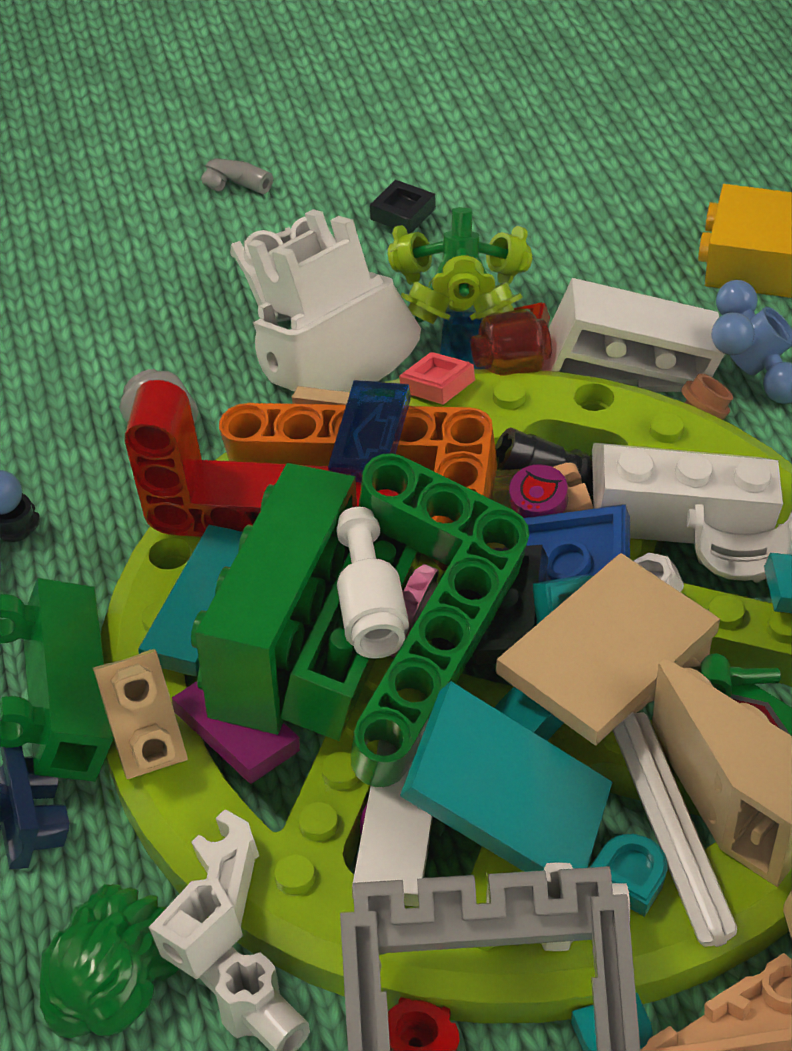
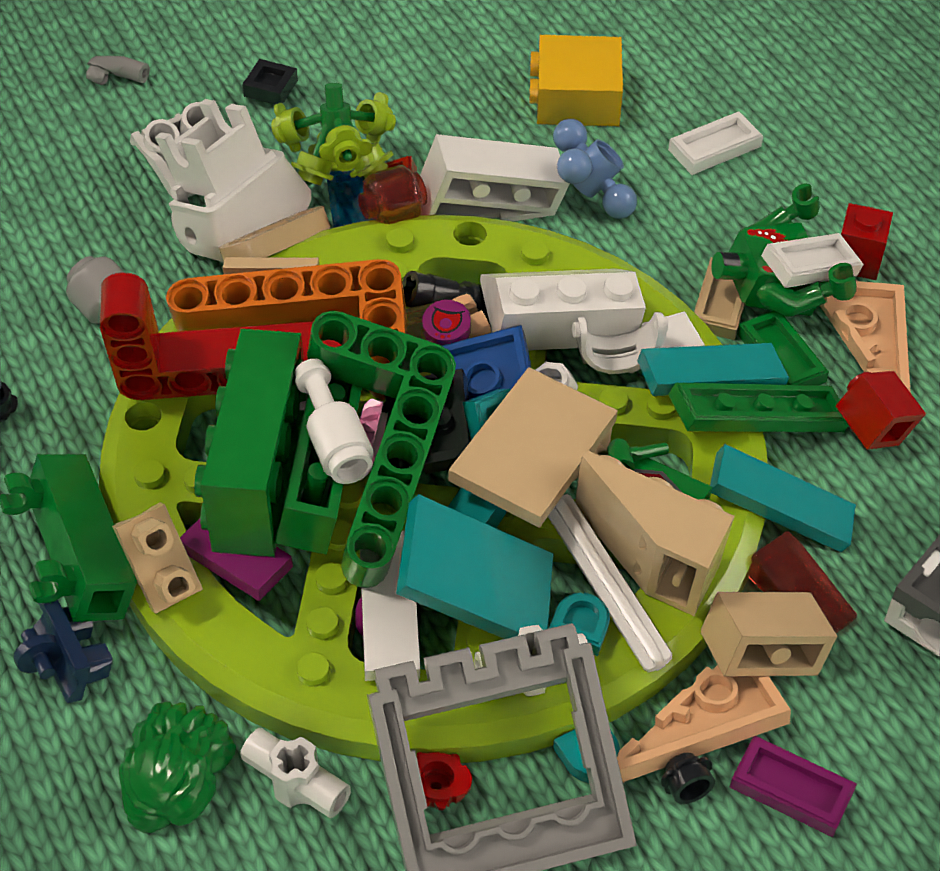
camera: 15 degrees left, 5 degrees up
(183, 929) = (258, 669): white piece -> none
(191, 593) = (180, 452): teal tile -> none
(369, 425) = (298, 288): clear blue tile -> none
(378, 369) = (278, 235): none -> tan beam
(438, 377) = (337, 233): coral tile -> none
(708, 395) = (560, 220): nougat plate -> none

